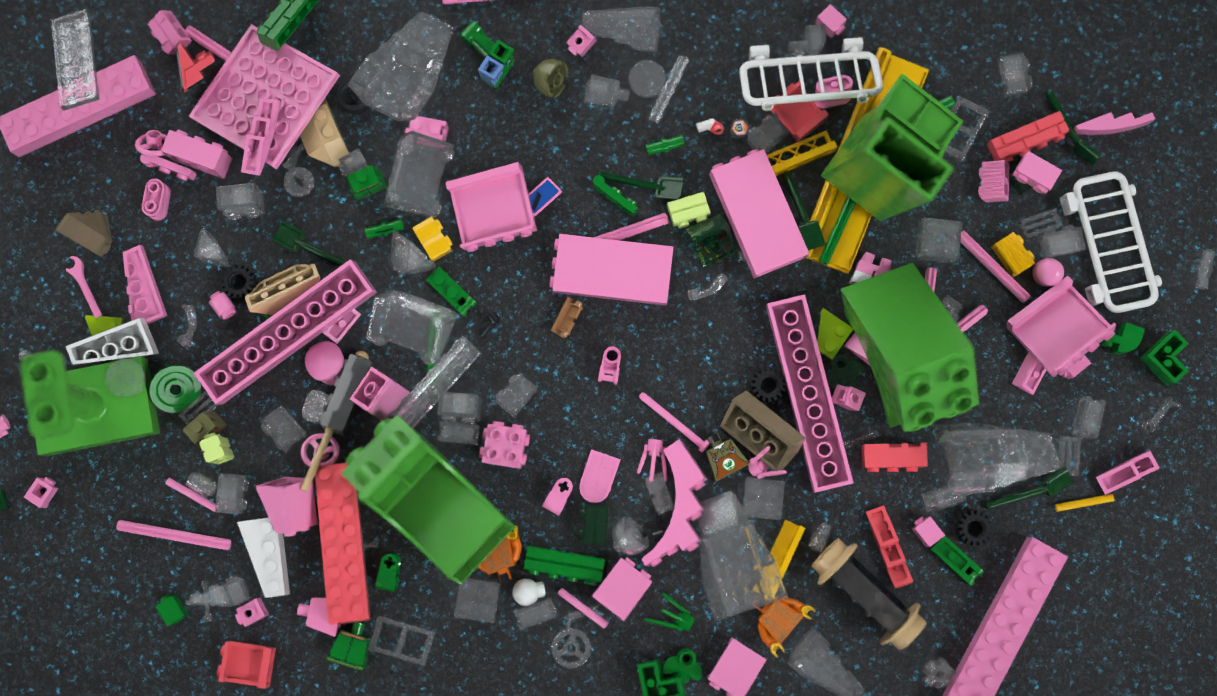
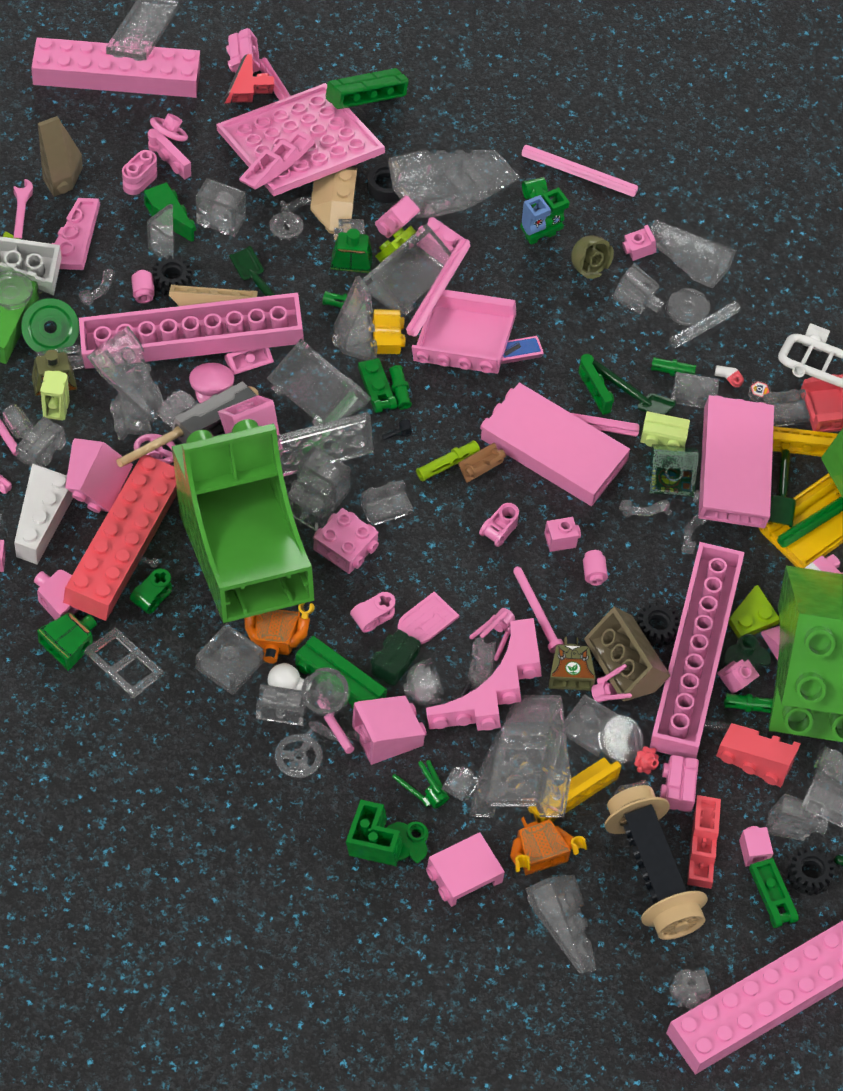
camera: 20 degrees right, 25 degrees down
(194, 220) = (162, 195): none -> green slope
(196, 153) = (205, 151): bright pink brick -> none
(255, 397) = (124, 367): none -> clear wedge
(382, 130) = (397, 217): none -> bright pink brick
(395, 147) = (389, 247): none -> lime wing
(451, 181) = (438, 287): none -> bright pink axle
(469, 284) = (400, 387): none -> green pin
(538, 334) = (447, 461): none -> lime pin
(565, 594) = (326, 692): none -> clear cylinder
(659, 347) = (562, 534): none -> bright pink brick
(692, 159) = (693, 389): none -> clear brick
(698, 363) = (595, 567): none -> bright pink brick
(698, 605) = (461, 783): none -> clear brick
(754, 301) = (689, 545): none -> clear piece
(791, 500) = (620, 739): none -> clear tile
(817, 505) = (646, 760): none -> coral plant
(850, 511) = (680, 782): none -> bright pink brick
(865, 413) = (748, 703): none -> green pin

